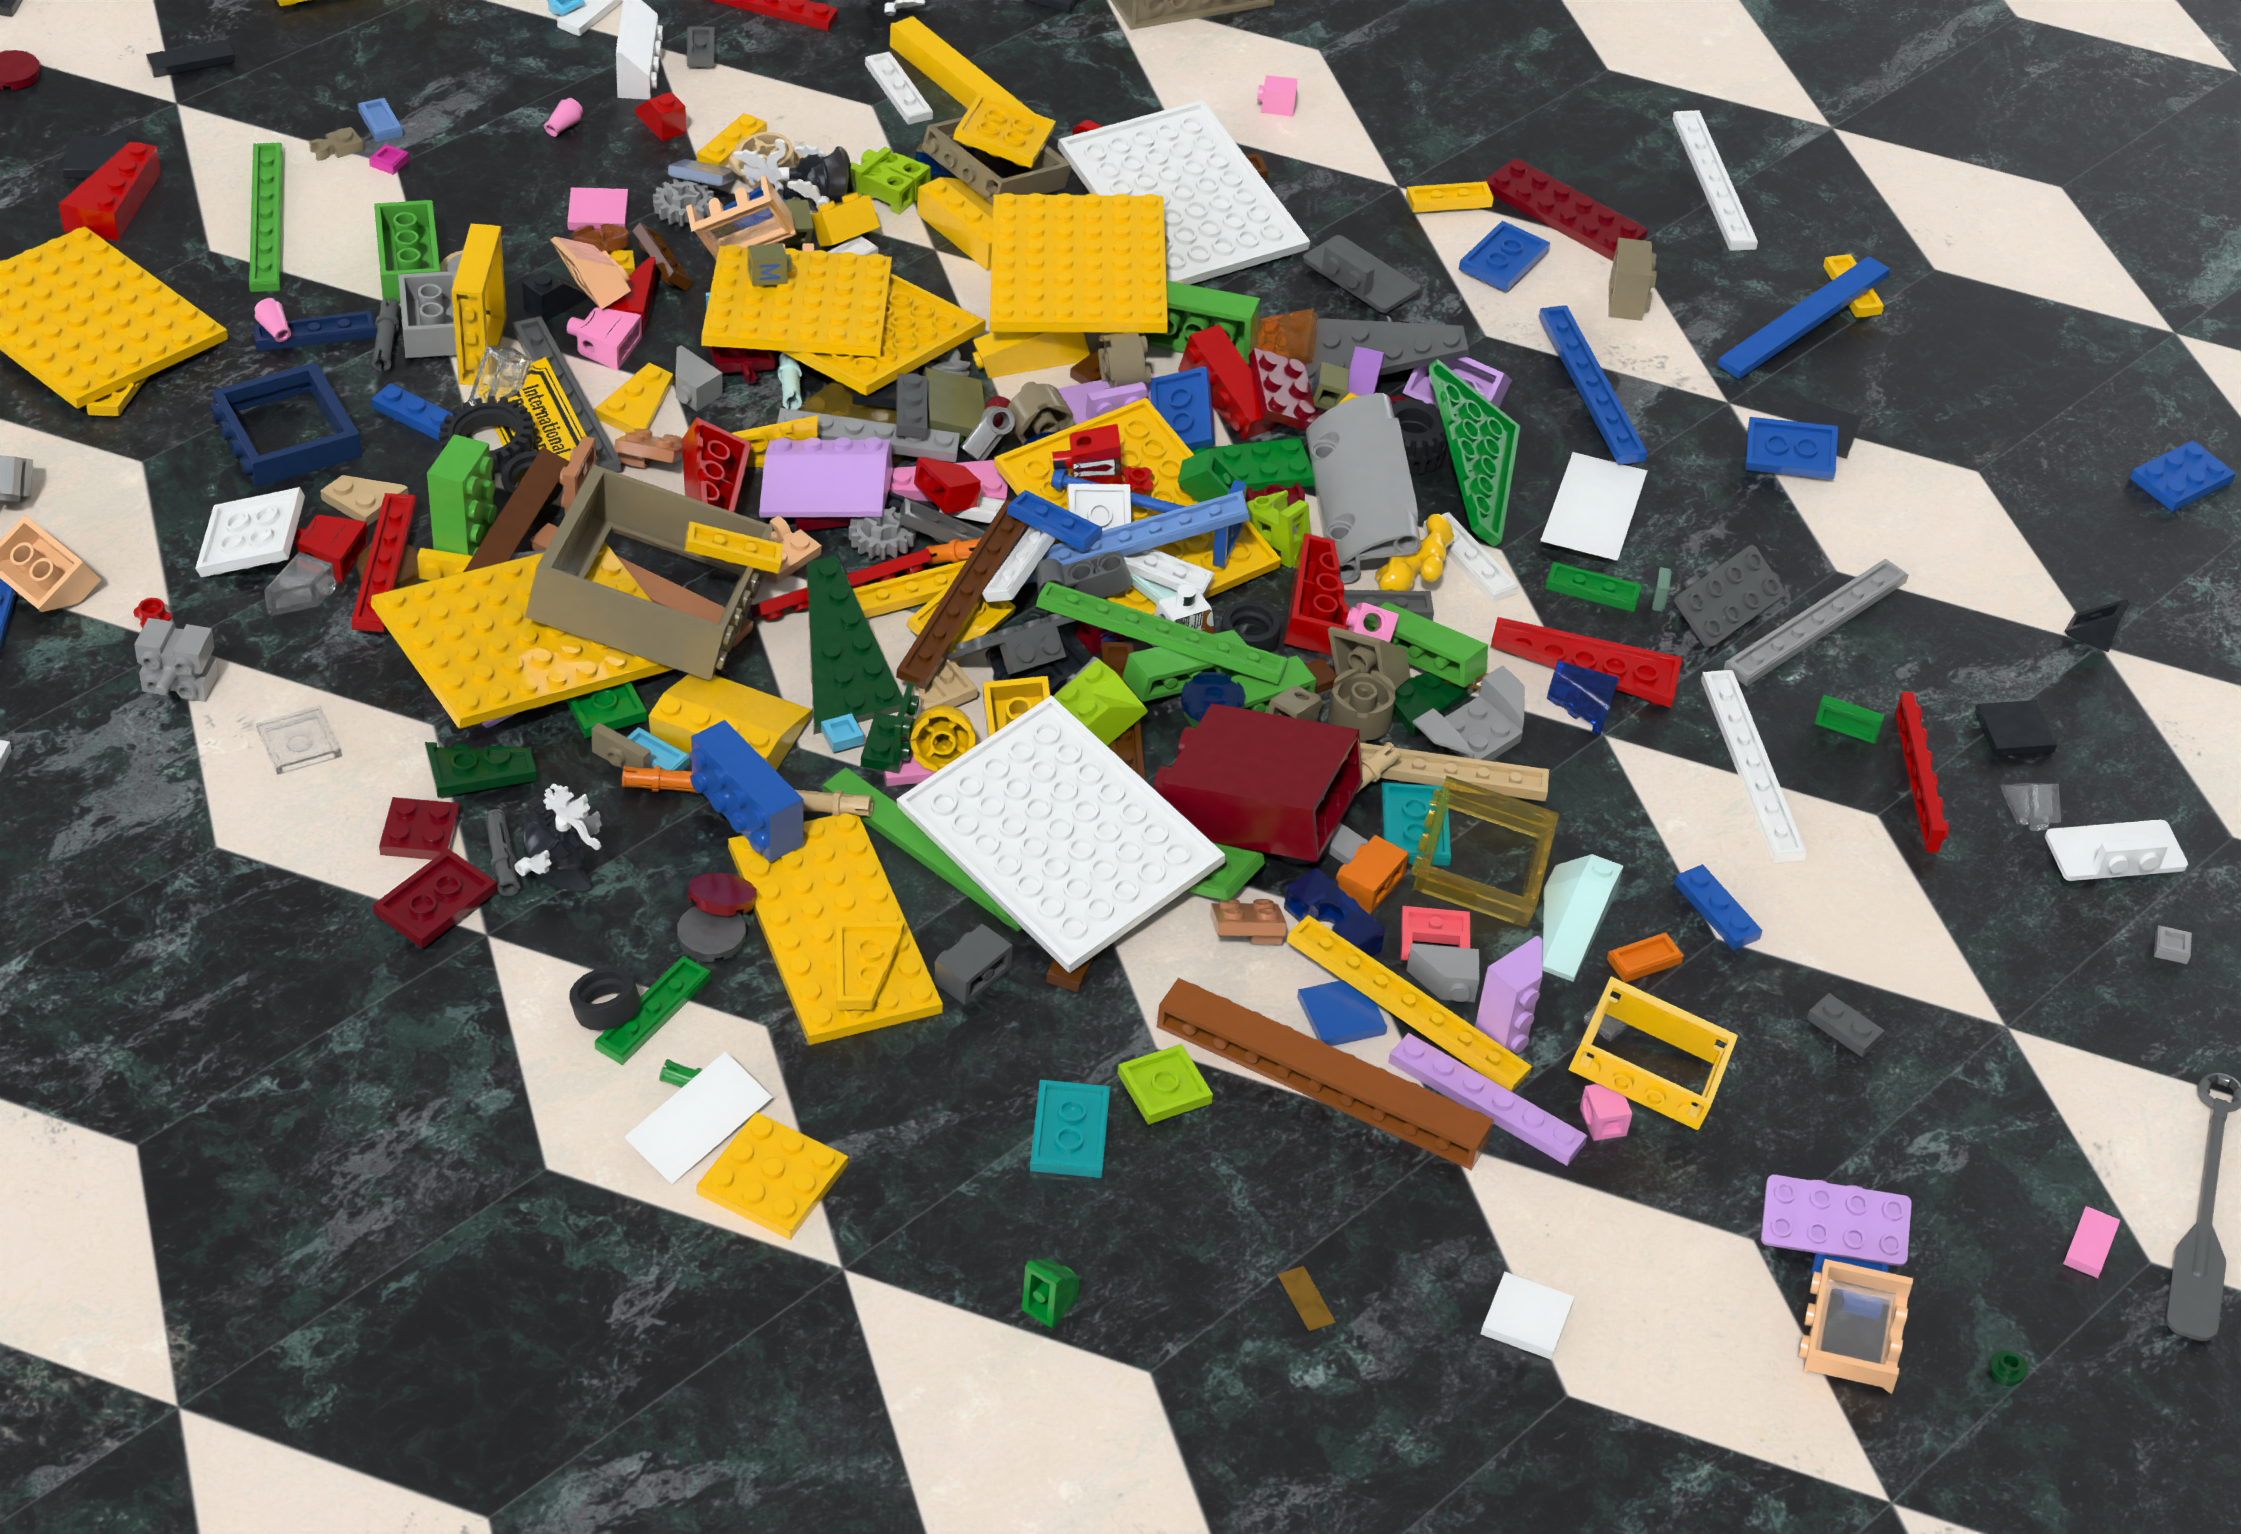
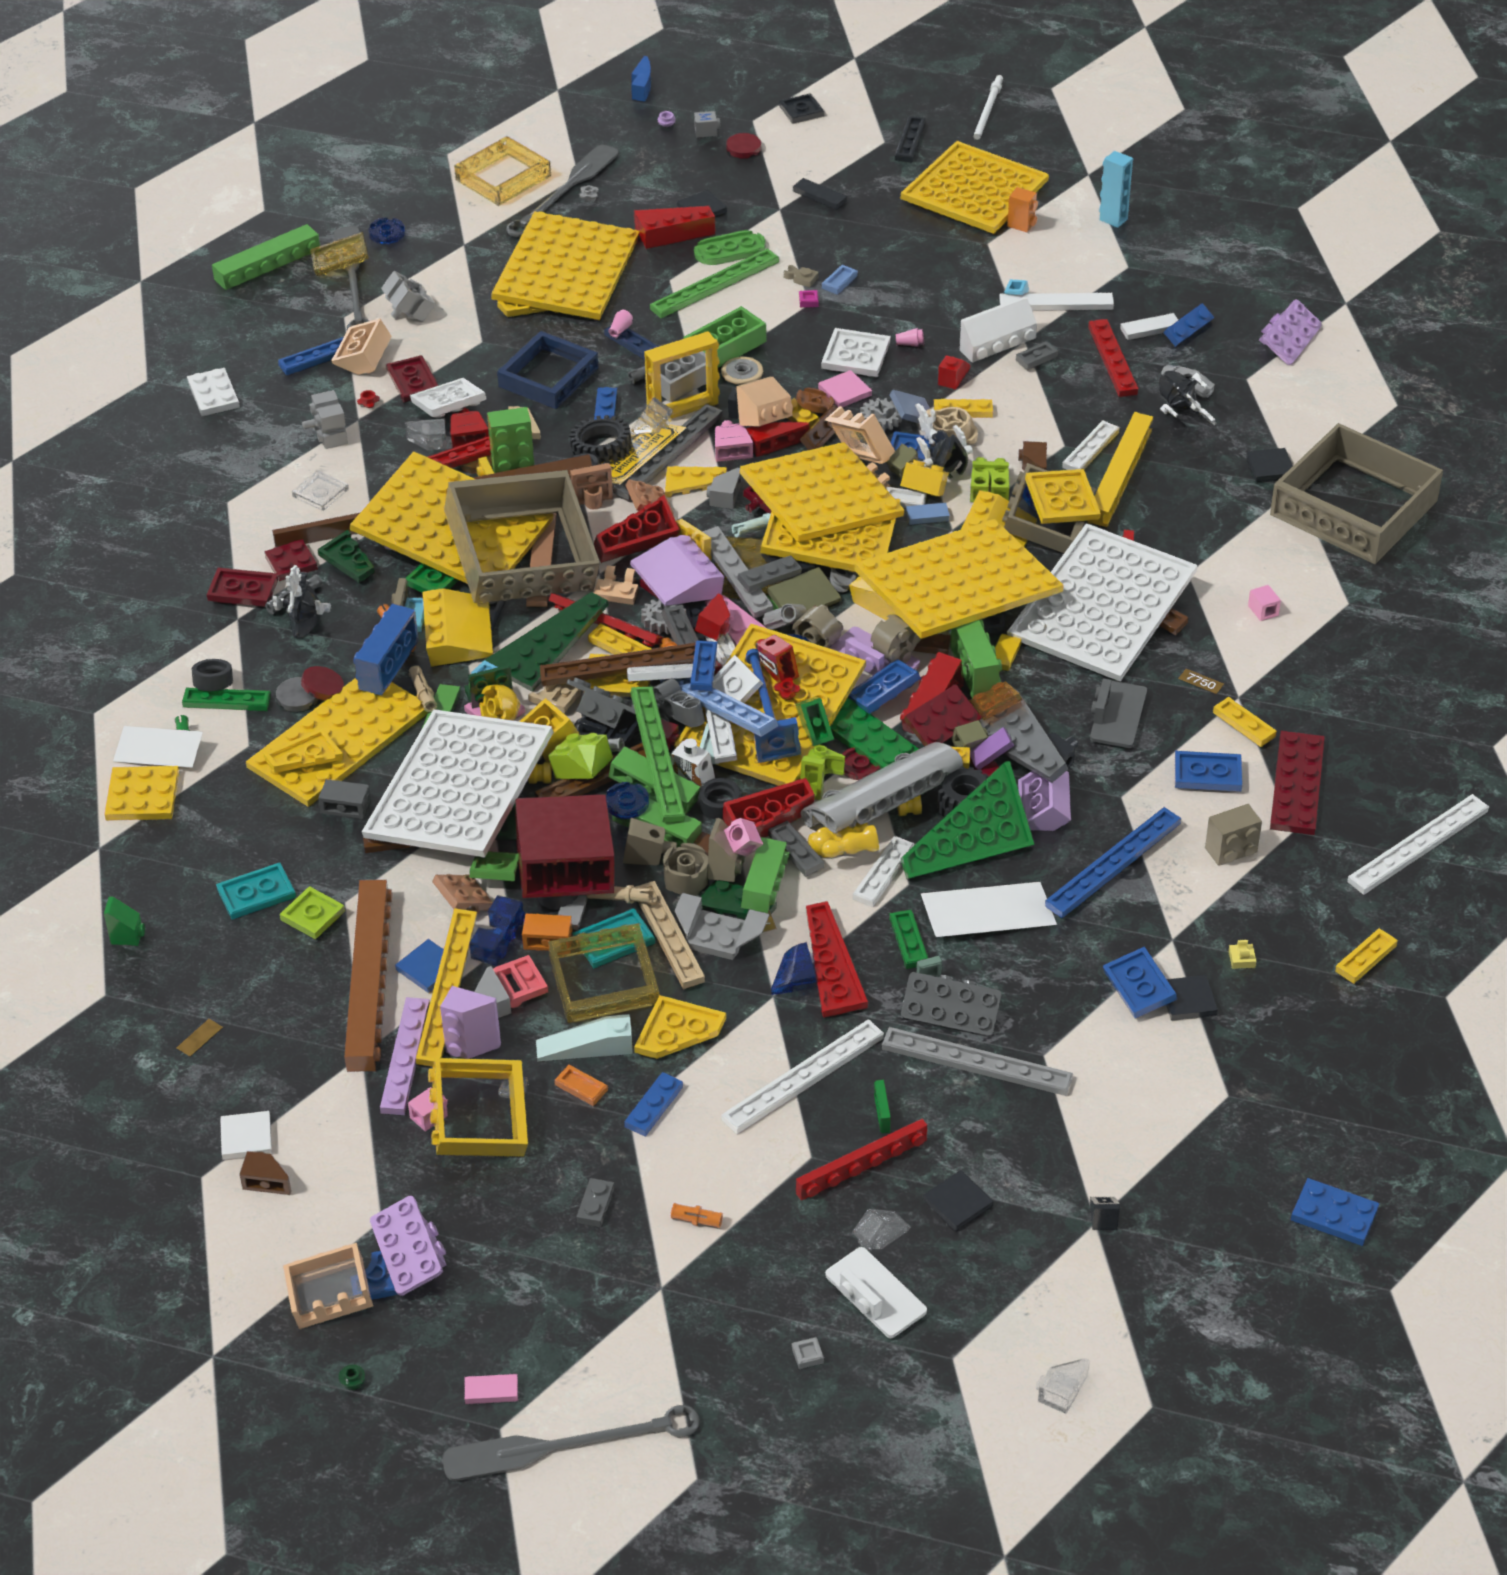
camera: 65 degrees right, 0 degrees up
(150, 555) = (411, 376): none -> dark red tile
(208, 173) = (729, 247): none -> bright green tile
(399, 762) = (314, 531): none -> reddish brown tile
(542, 168) = (856, 352): none -> white plate
(733, 547) = (553, 551): yellow plate -> none
(768, 264) = (825, 460): olive brick -> none
(890, 130) = (1034, 454): none -> reddish brown slope
(898, 246) = (927, 513): none -> medium blue tile
(1352, 198) = (1201, 681): none -> pearl gold sticker
(1610, 828) = (676, 1026): none -> yellow plate
(1618, 1318) = (263, 1174): none -> reddish brown slope
(1791, 365) = (1242, 955): none -> light yellow tile
(1803, 317) = (1297, 940): blue tile -> none
(1920, 944) = (680, 1212): none -> orange pin

